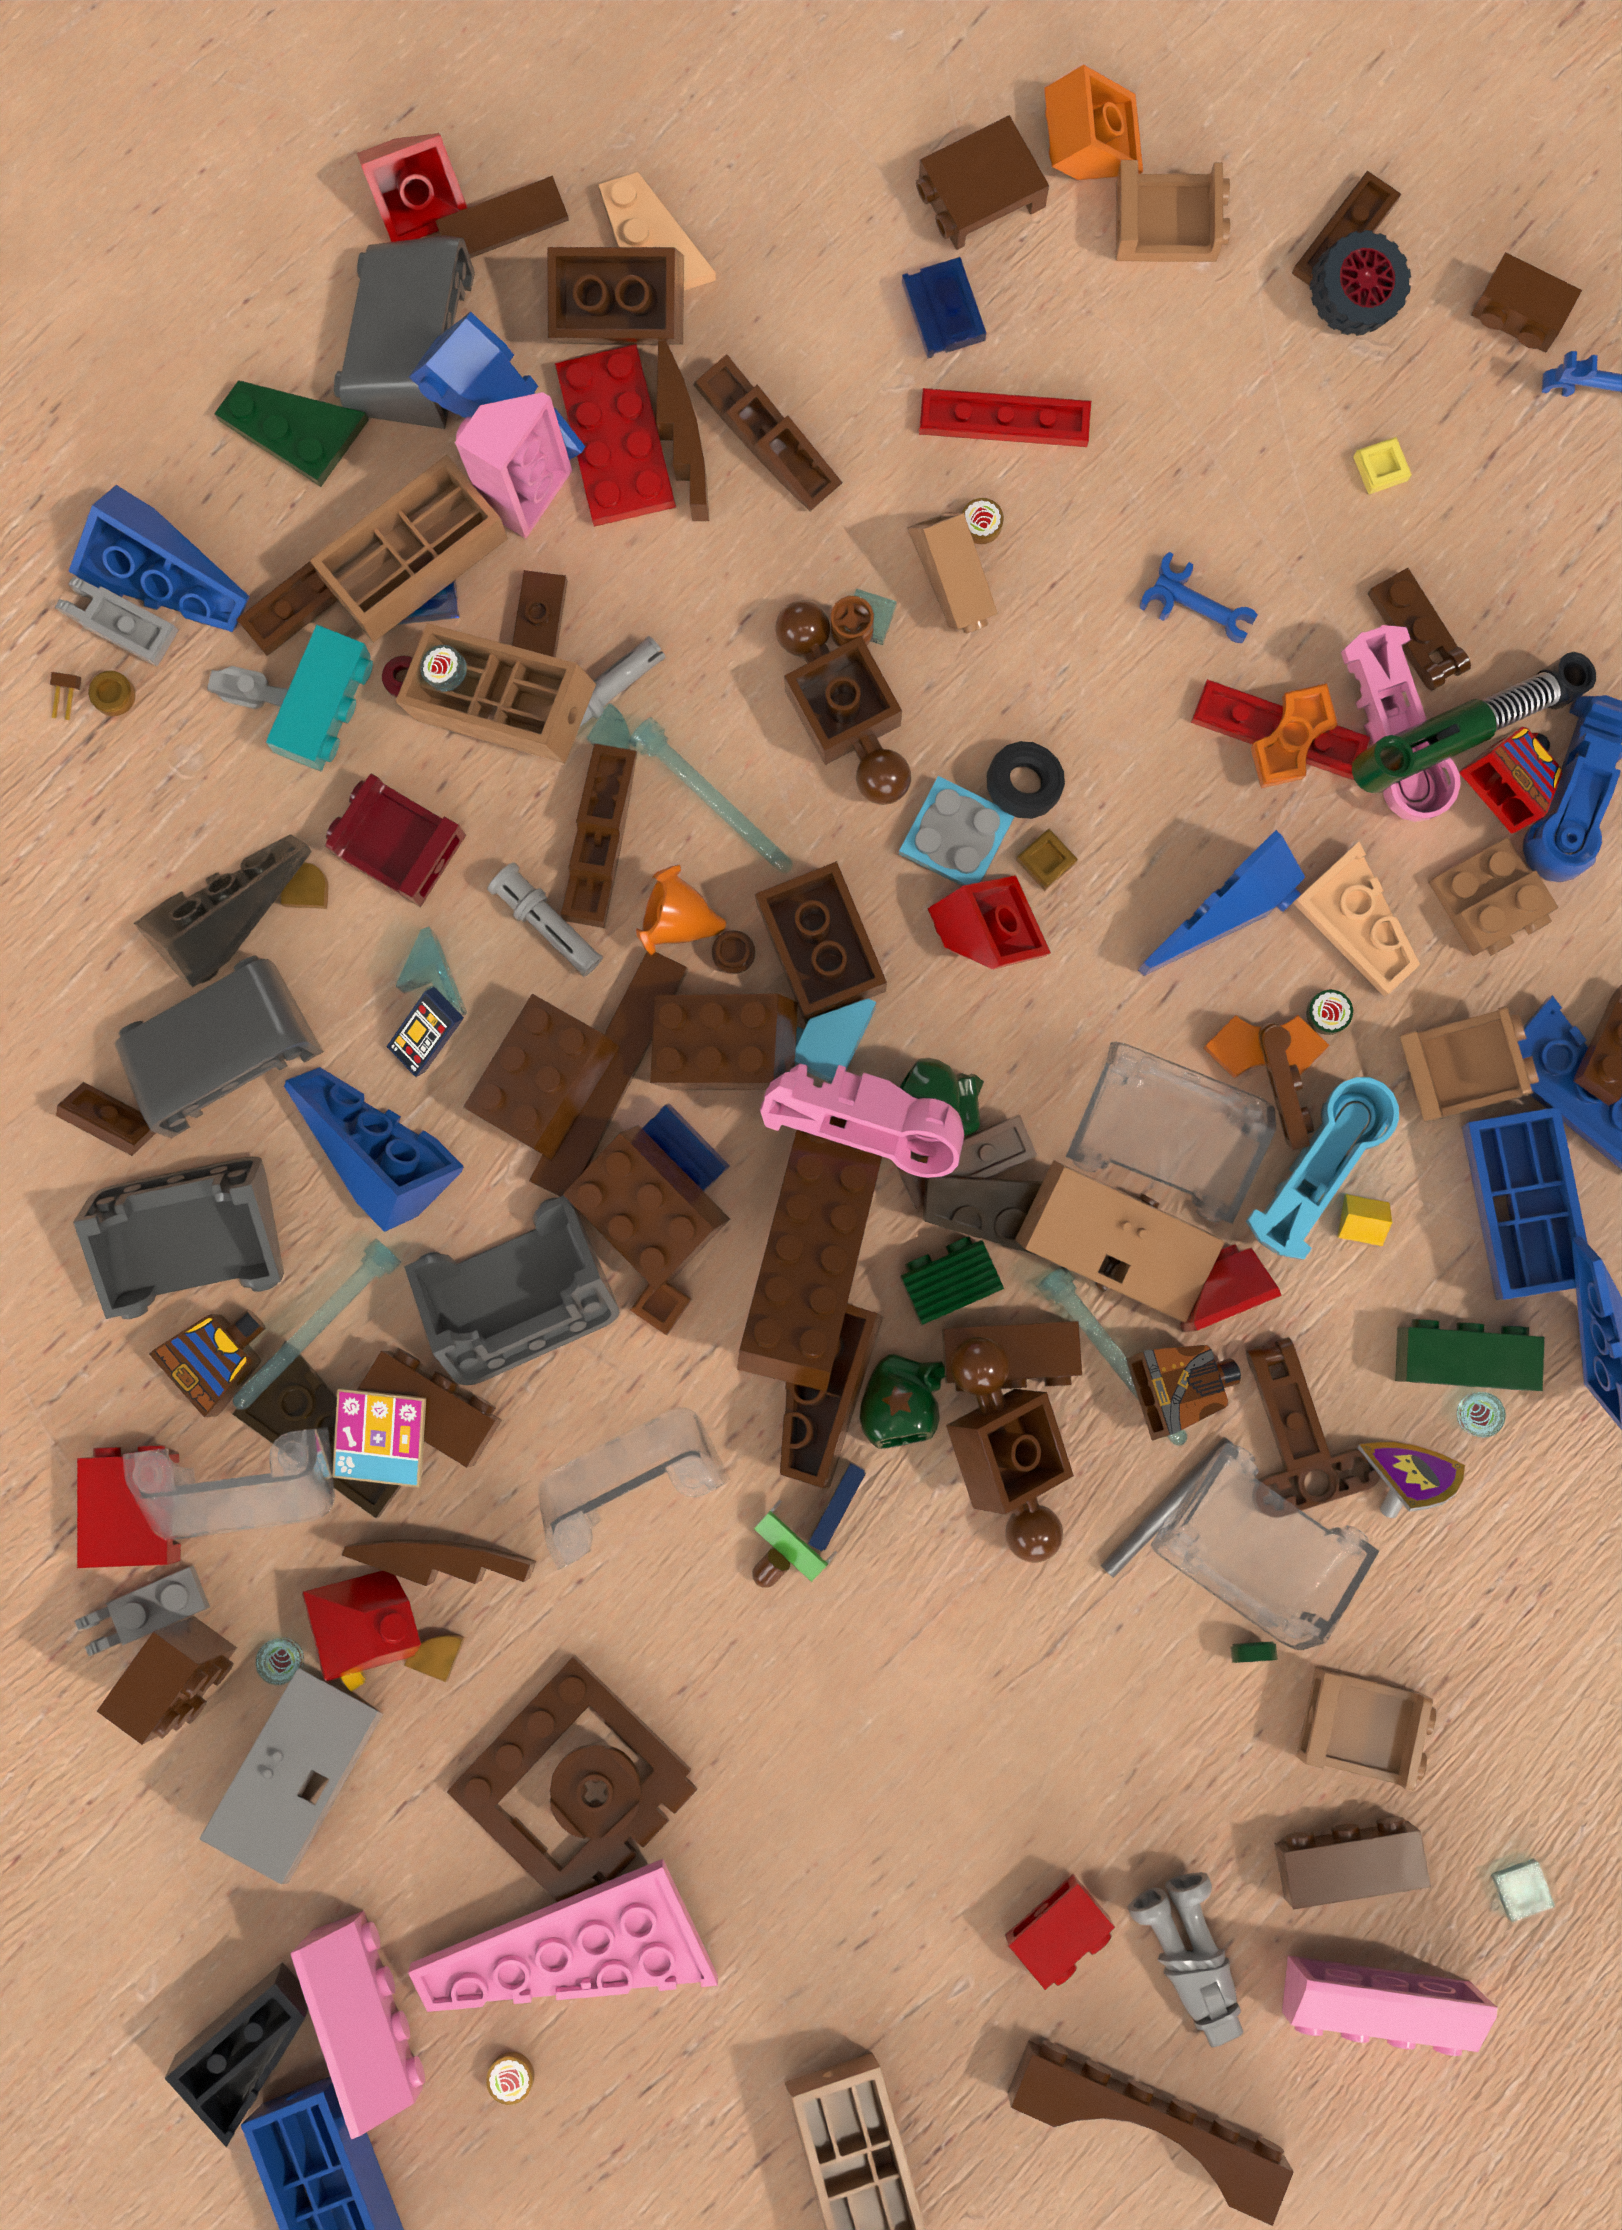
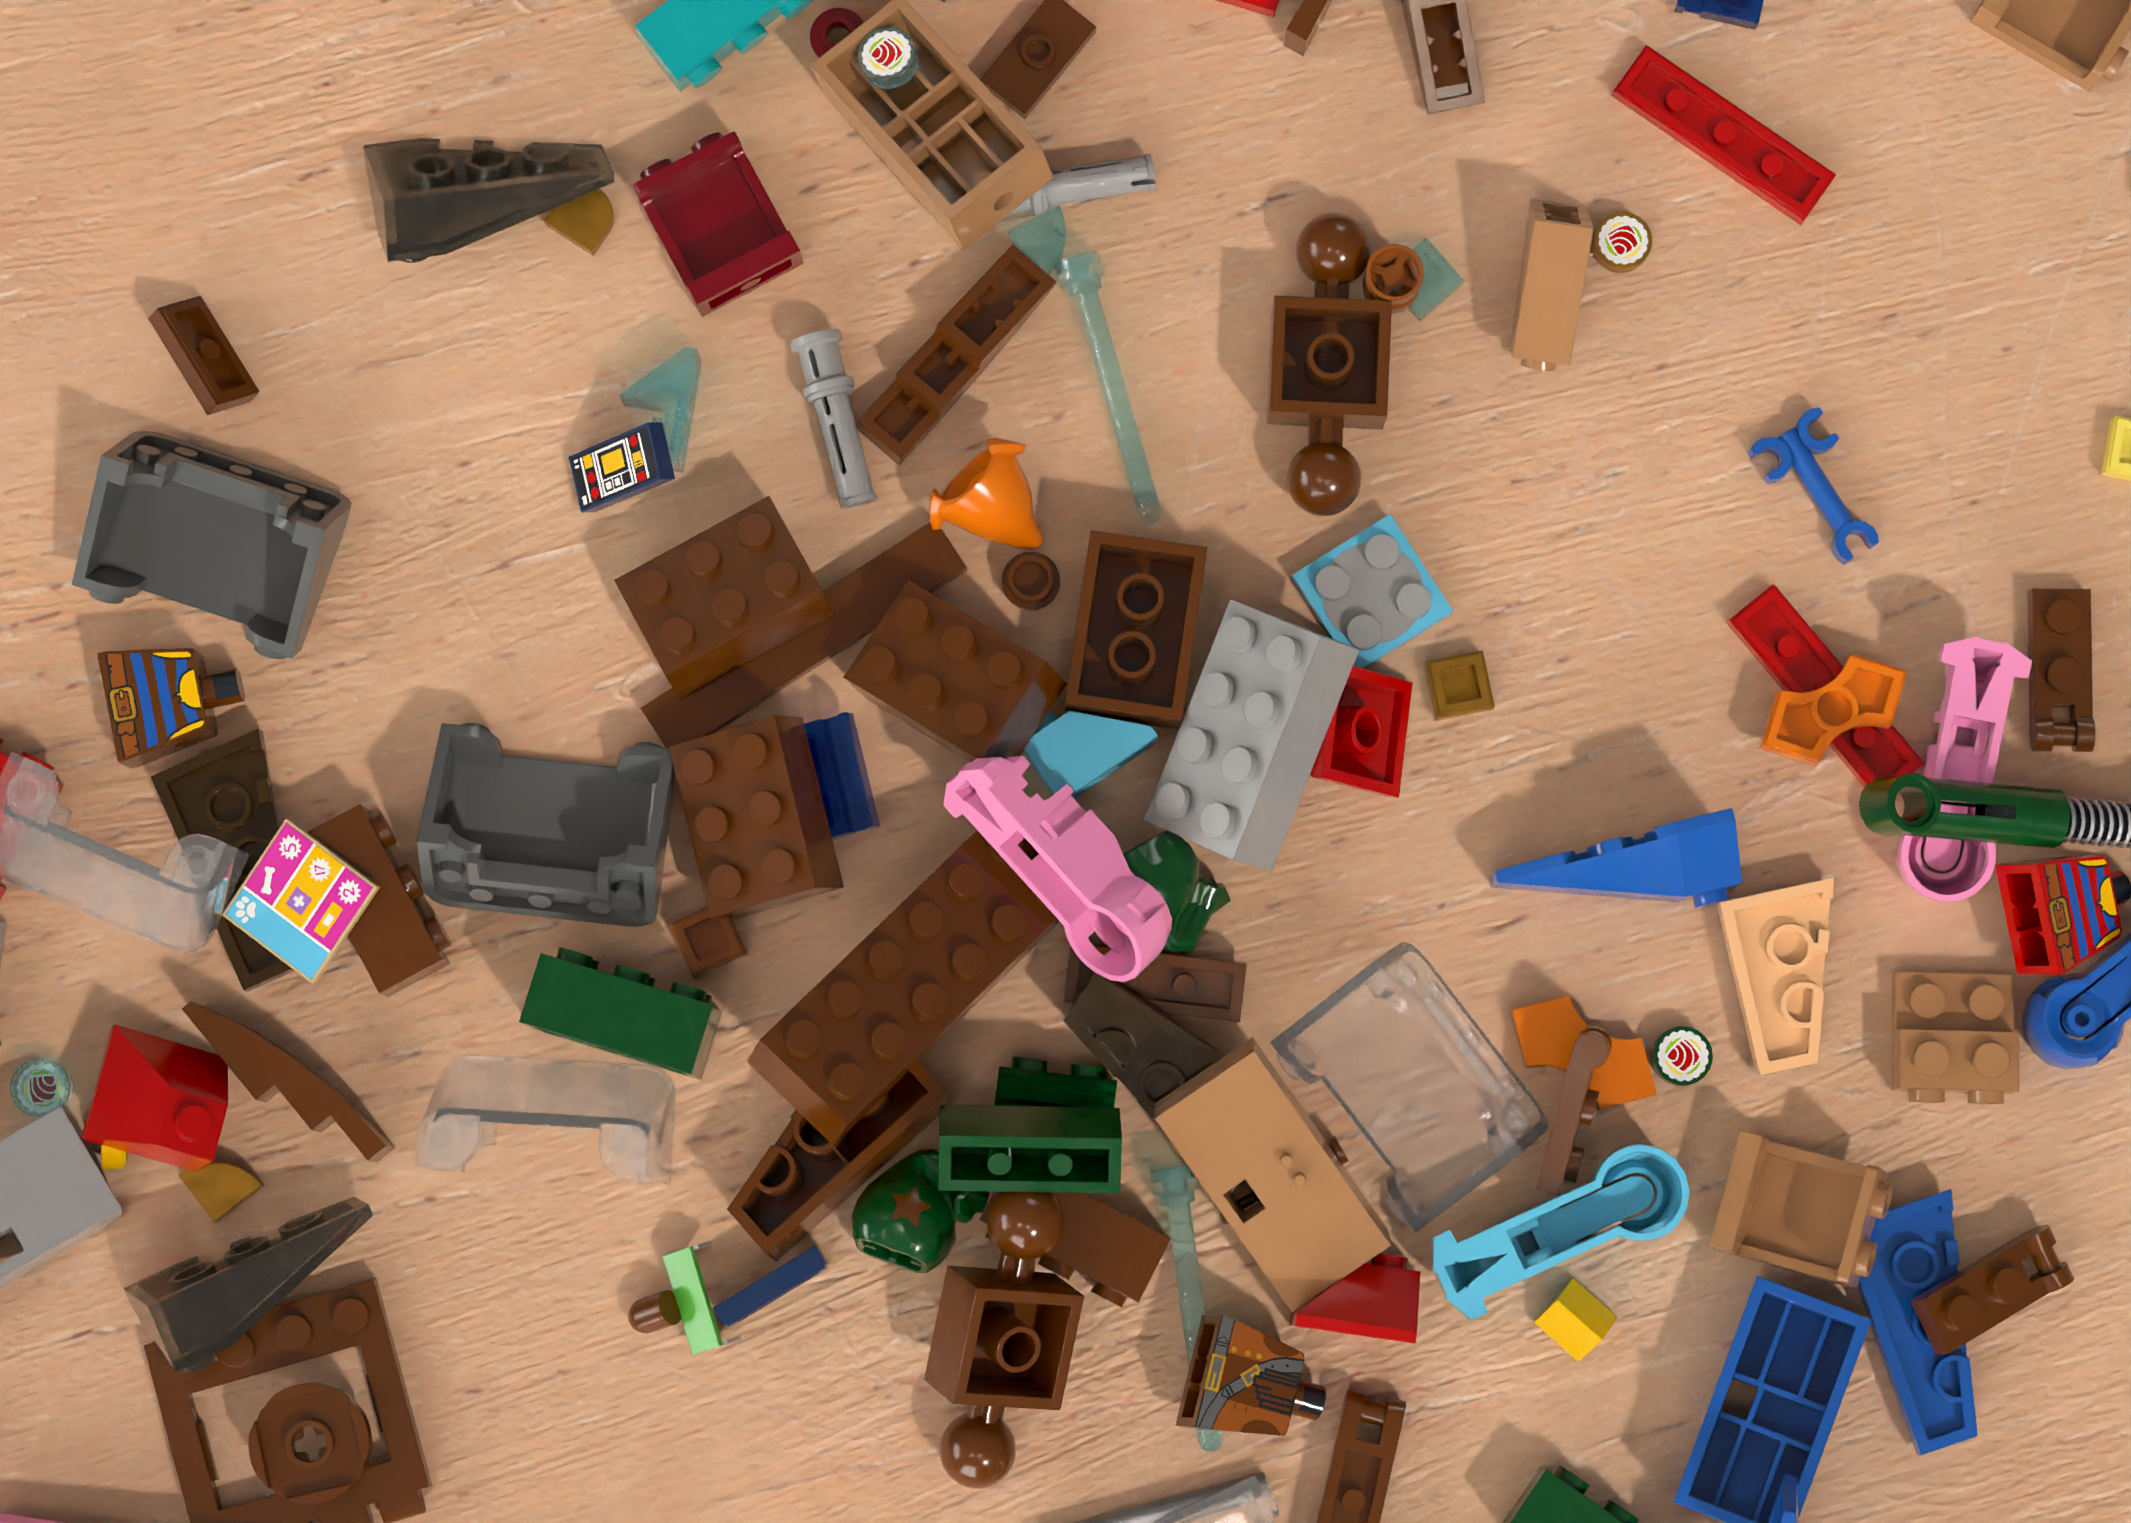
camera: 25 degrees right, 0 degrees up
(213, 1044) = (373, 341): dark grey windscreen -> none
(375, 1263) = (412, 700): clear light blue piece -> none
(378, 1159) = (484, 583): blue wedge -> none
(474, 1741) = (210, 1305): none -> clear smoke wedge
(633, 1386) = (621, 1012): none -> dark green brick
(937, 965) = (1251, 735): none -> light grey brick
(955, 1317) = (1029, 1149): none -> dark green brick
(1040, 761) = (1515, 558): black tyre -> none

